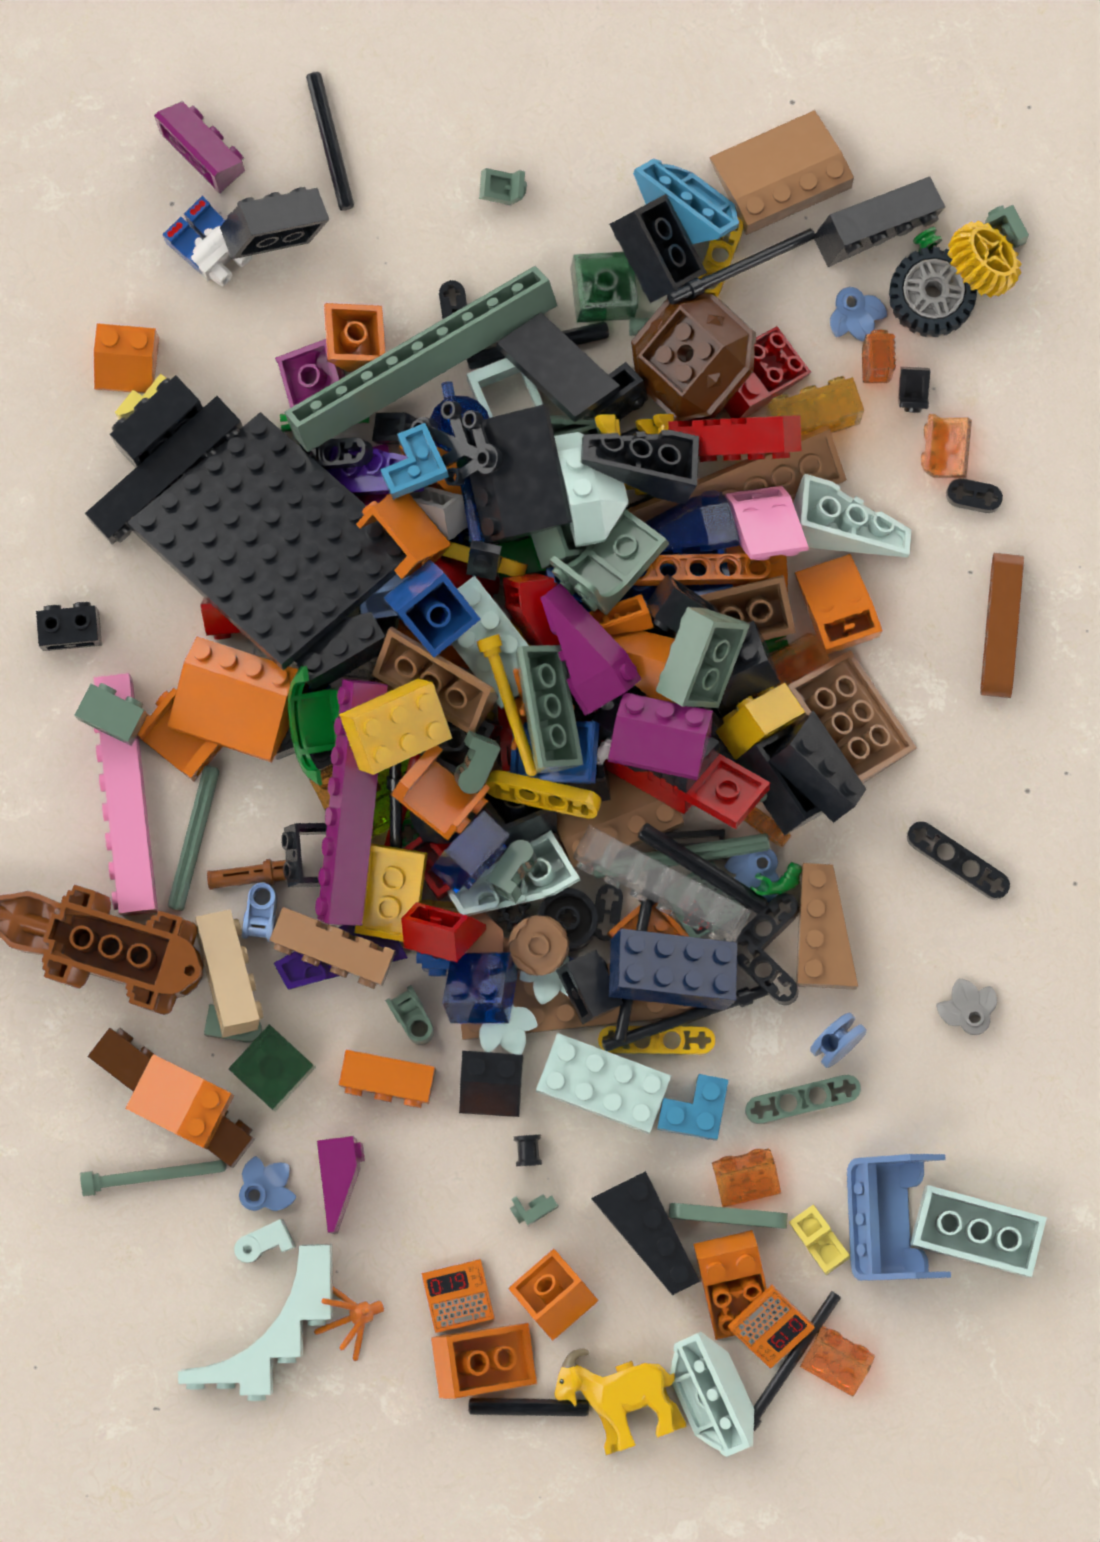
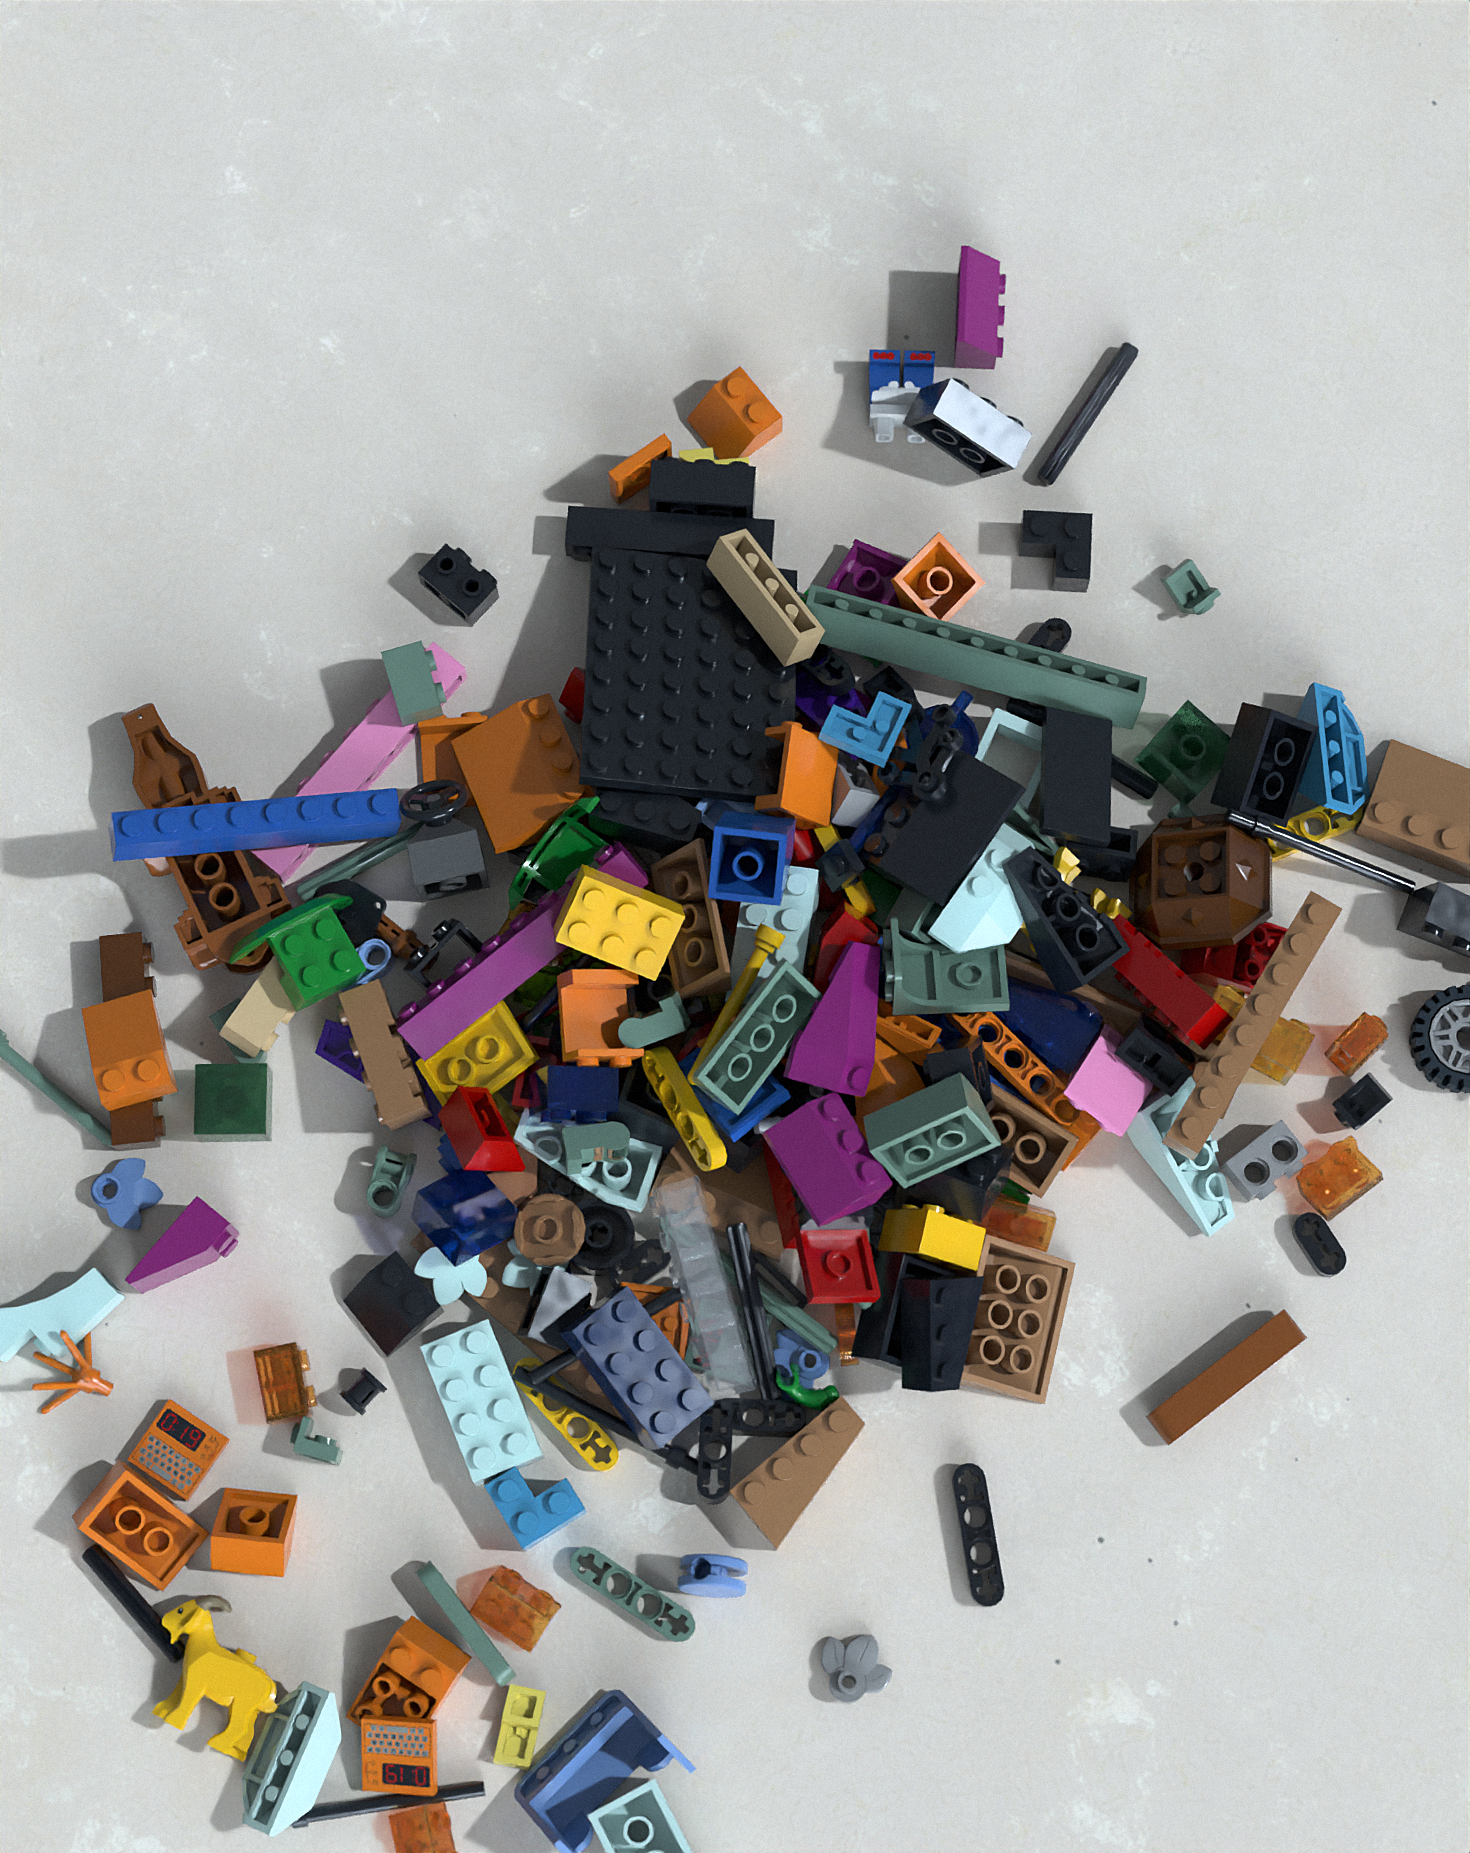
camera: 45 degrees right, 5 degrees down
(104, 448) = (635, 471): none -> orange tile
(112, 894) = (254, 824): none -> blue brick
(223, 881) = (362, 915): none -> black piece
(225, 931) = (310, 950): none -> green piece
(238, 792) = (445, 851): none -> dark grey piece
(253, 1245) = (65, 1230): light aqua leg -> none
(266, 447) = (765, 597): none -> tan brick
(386, 1078) = (314, 1209): orange brick -> none
(400, 231) = (1065, 539): none -> black brick
(478, 1194) = (284, 1383): none -> clear orange brick
(644, 1224) = (387, 1560): black wedge -> none
(775, 481) = (1157, 1054): none -> black brick
(814, 408) = (1252, 1026): none -> medium nougat brick
(838, 604) = (1104, 1214): orange slope -> none
(860, 317) = (1379, 997): medium blue plate -> none
(889, 478) = (1260, 1155): none -> light grey brick

